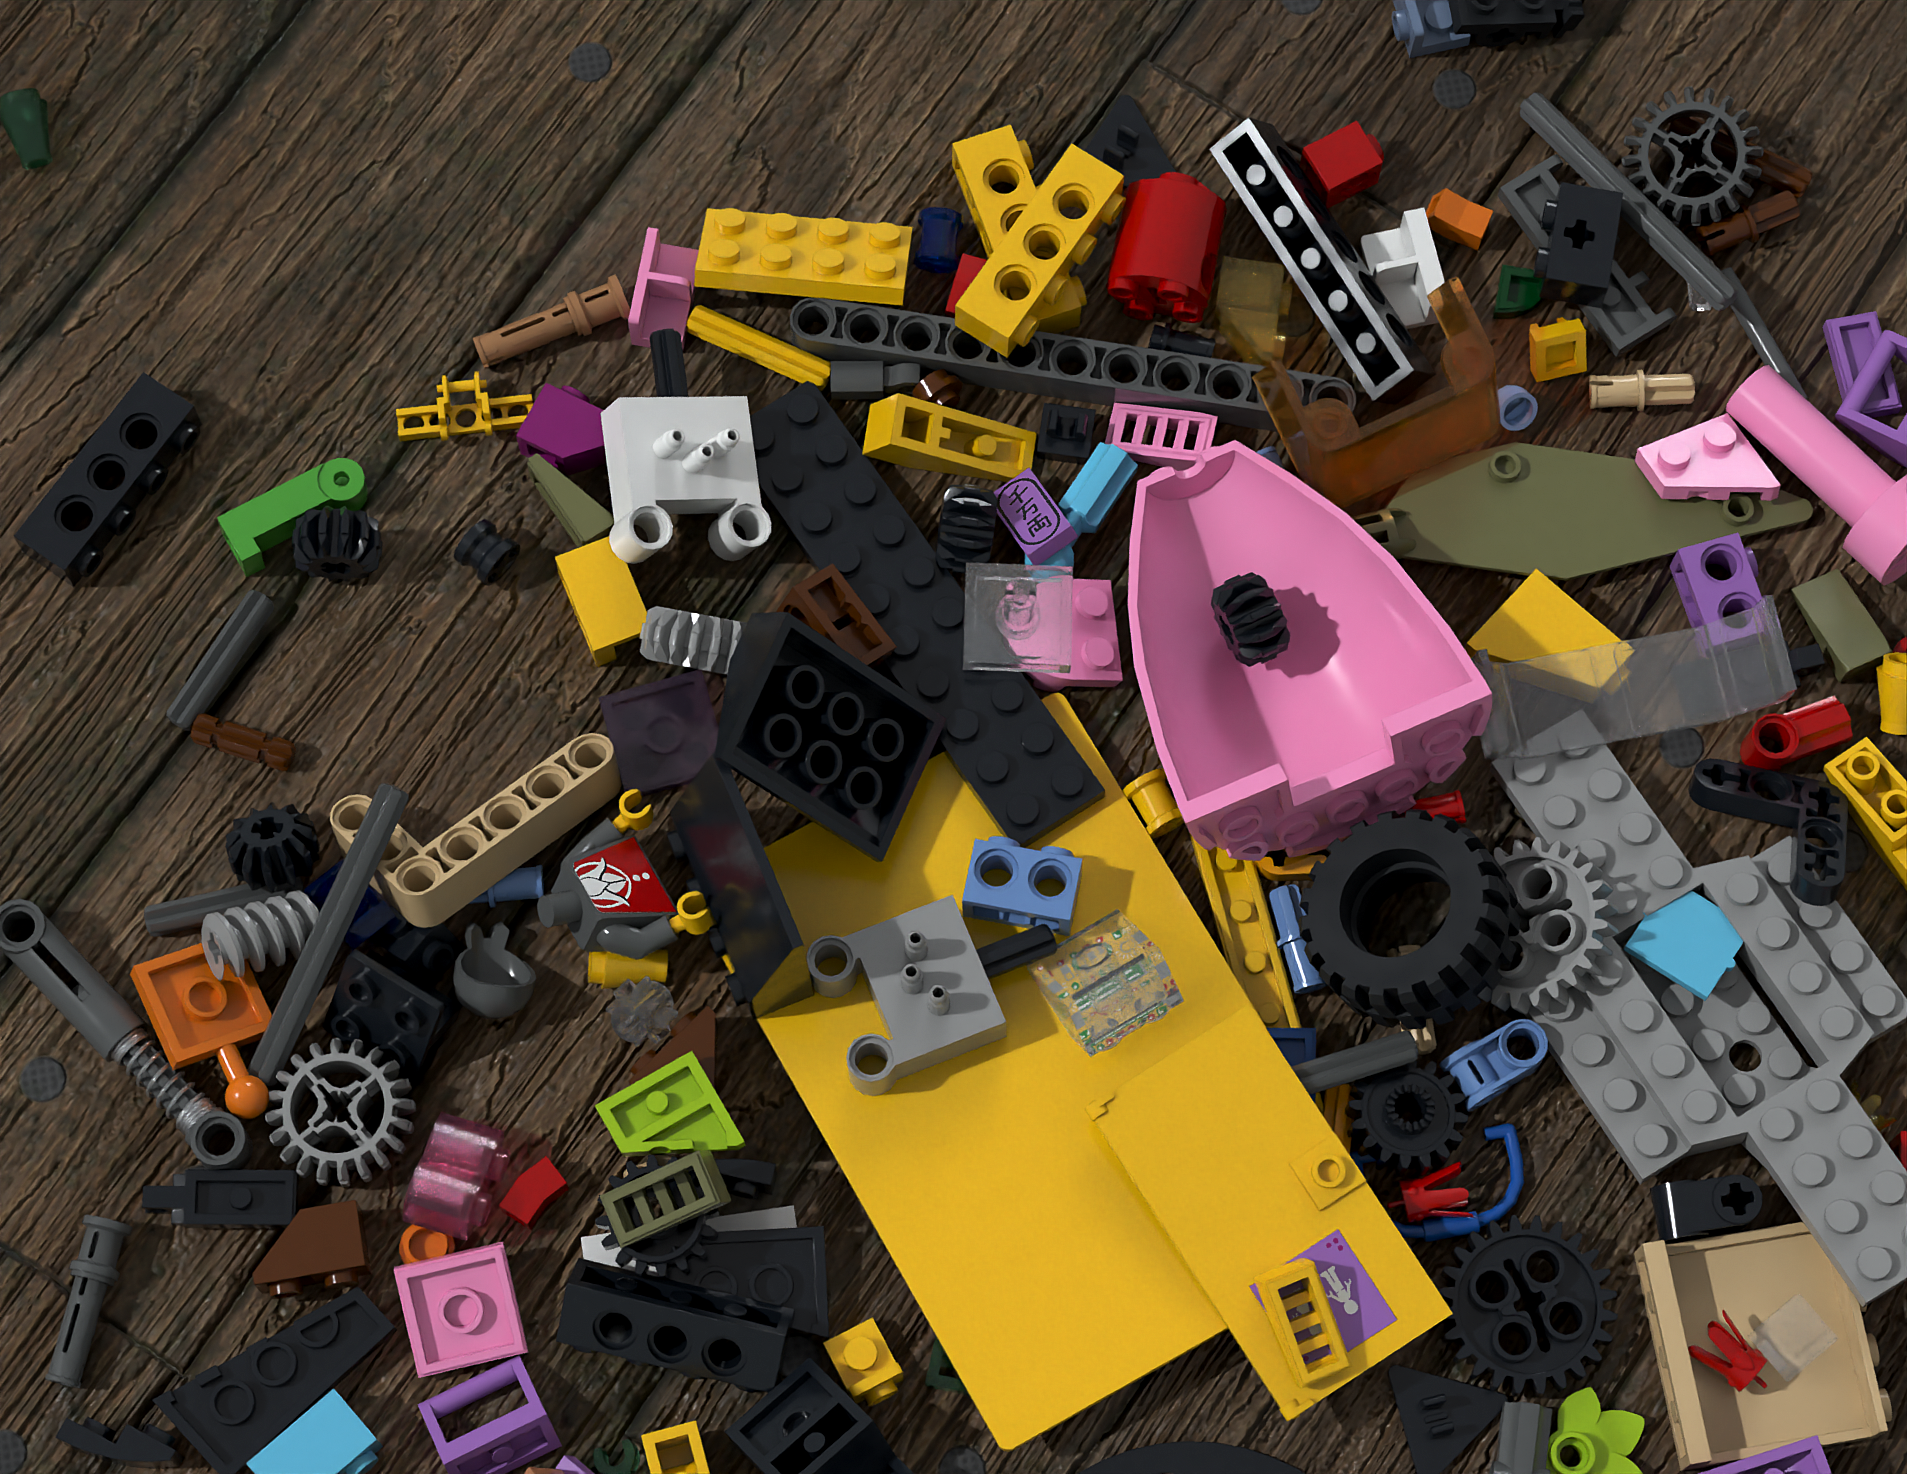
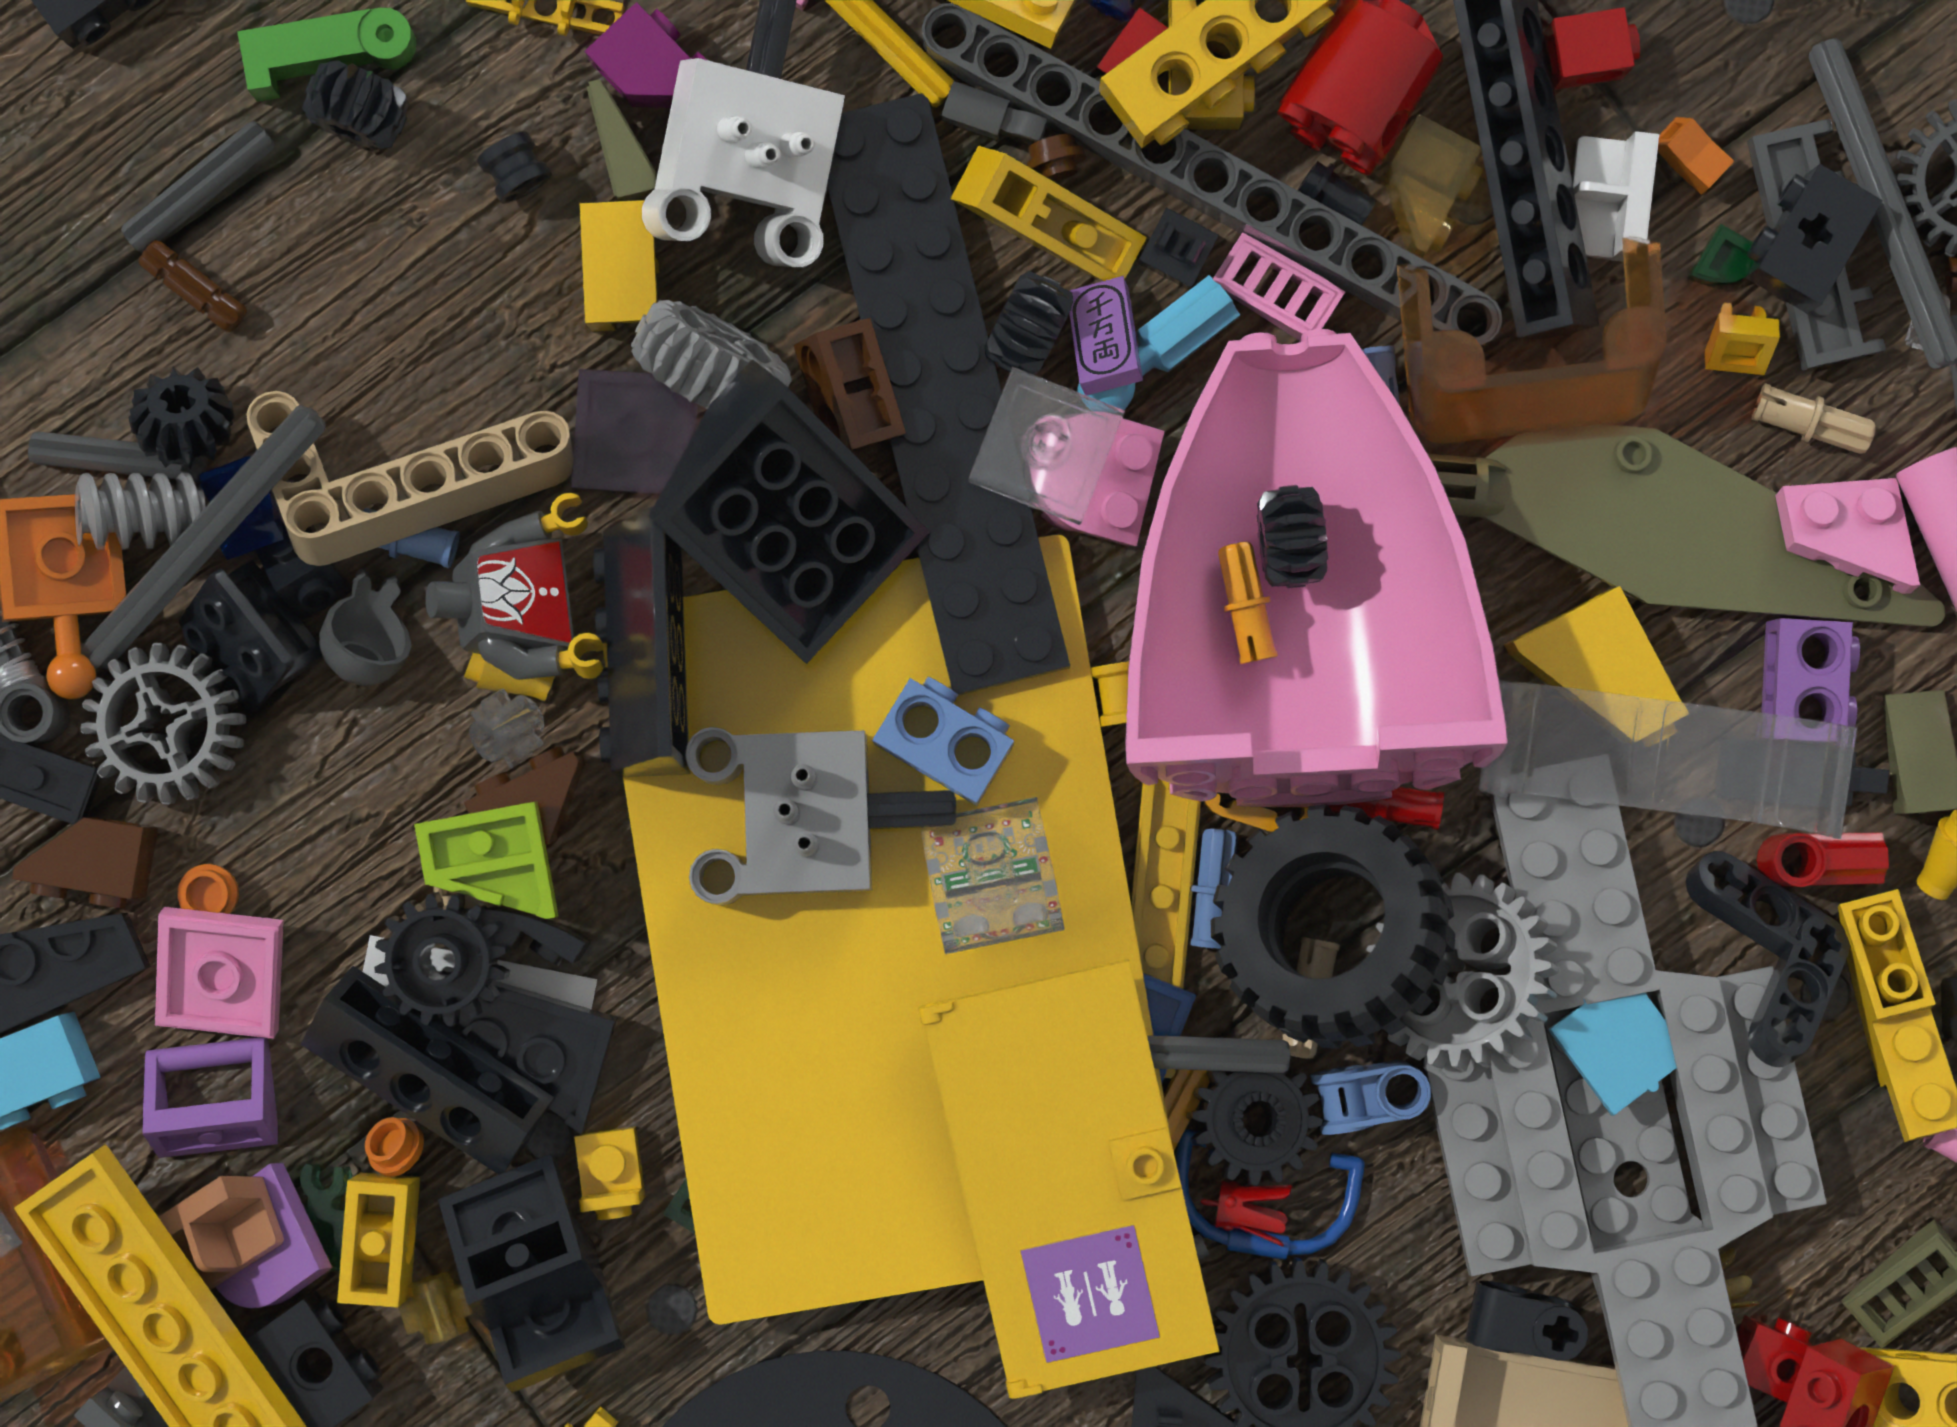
camera: 20 degrees right, 15 degrees up
(455, 1176) = (256, 835): clear pink brick -> none
(533, 1193) = (333, 876): red piece -> none
(666, 1404) = (394, 1146): none -> orange plate
(709, 1178) = (490, 953): olive slope -> none
(1233, 688) = (1246, 602): none -> light orange axle
(1322, 1314) = (1060, 1269): yellow slope -> none
(1516, 407) = (1671, 392): light blue hinge -> none

